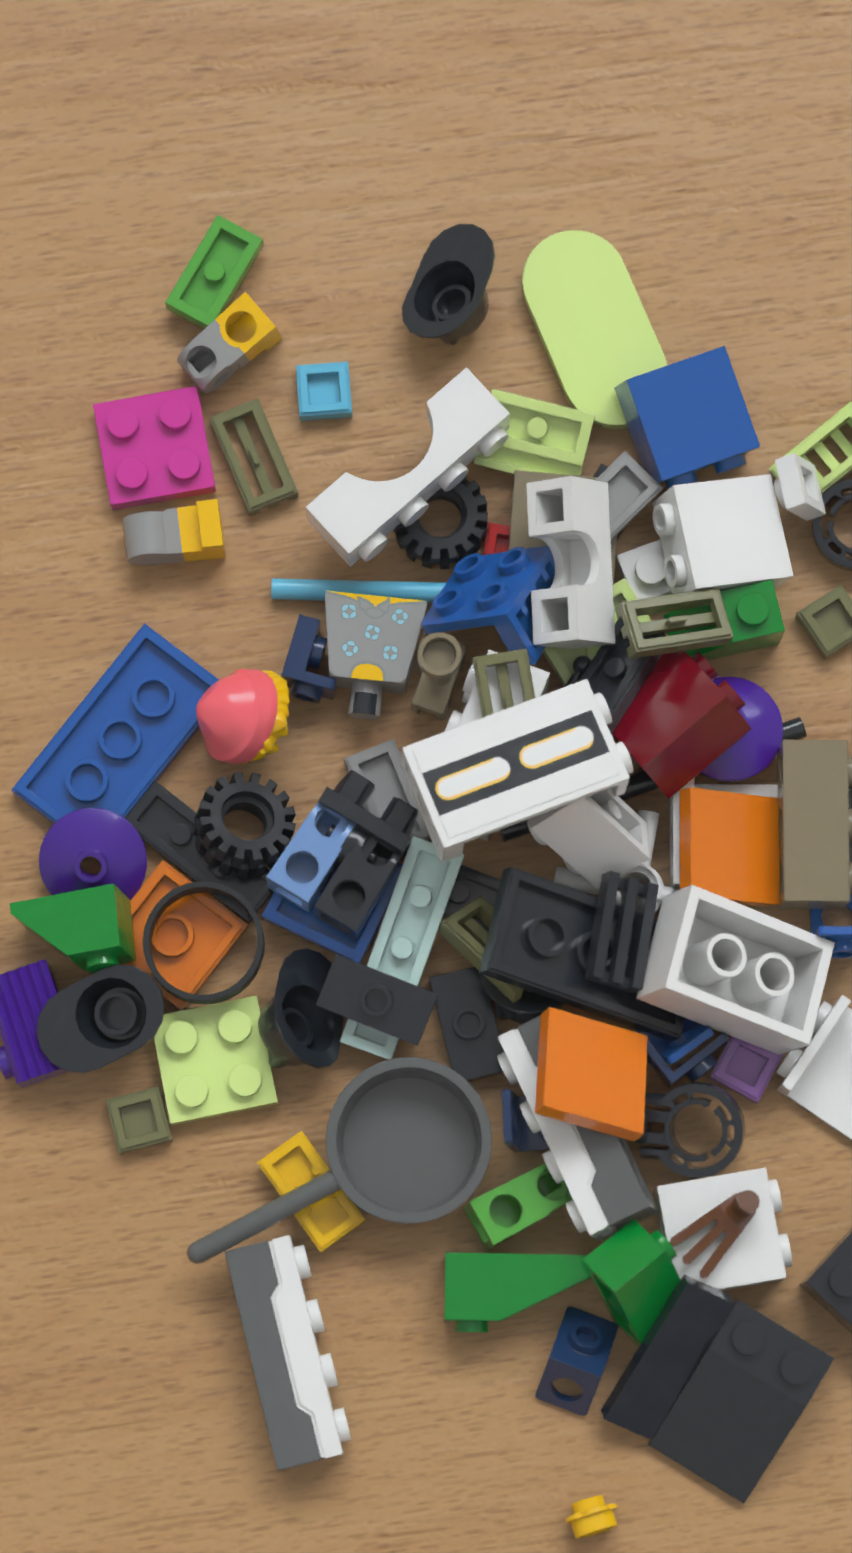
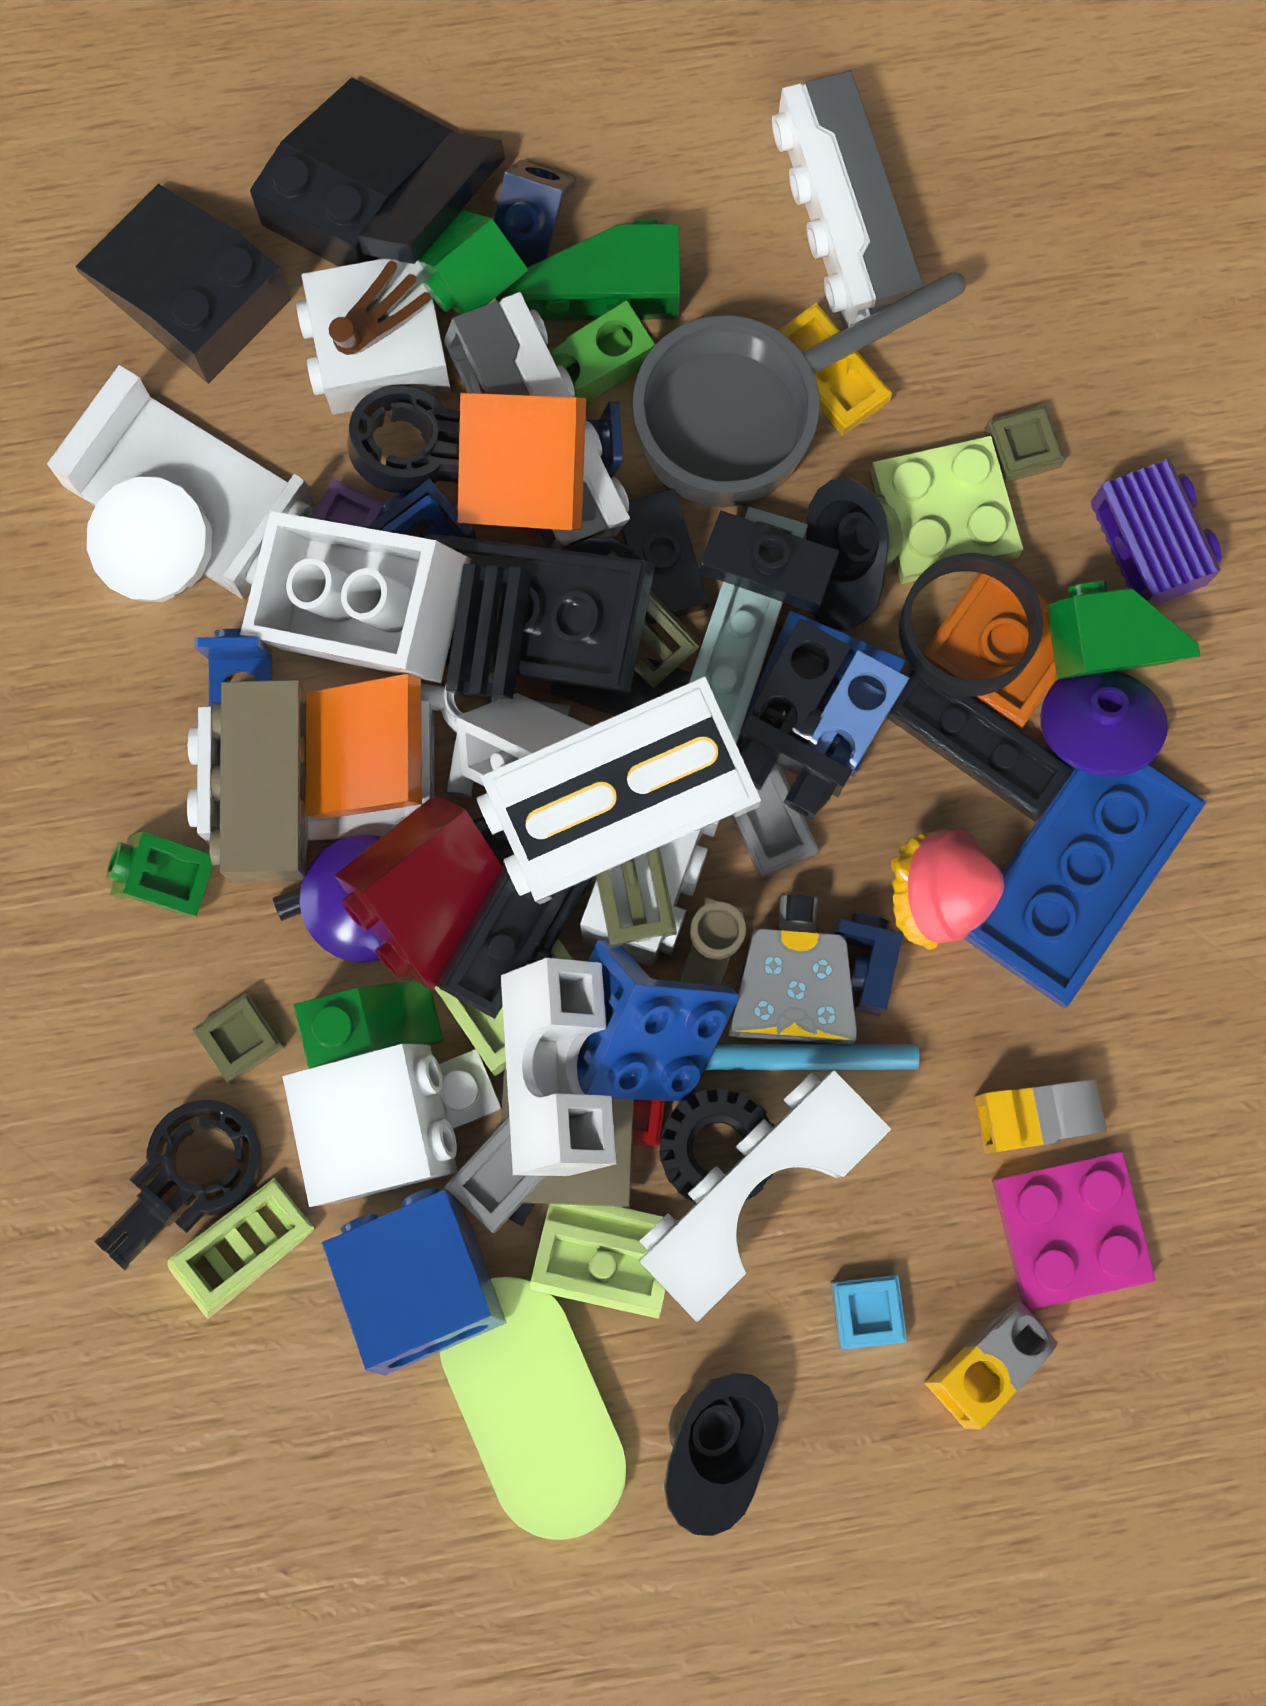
camera: 175 degrees right, 0 degrees up
(100, 1018) = (1084, 527): black piece -> none
(214, 272) = (1018, 1463): bright green plate -> none
(251, 798) = (924, 799): black tyre -> none
(270, 497) = (927, 1234): olive tile -> none
(592, 1517) = (512, 53): yellow plate -> none
(643, 647) = (478, 985): olive tile -> none
(798, 487) = (274, 1192): white plate -> none

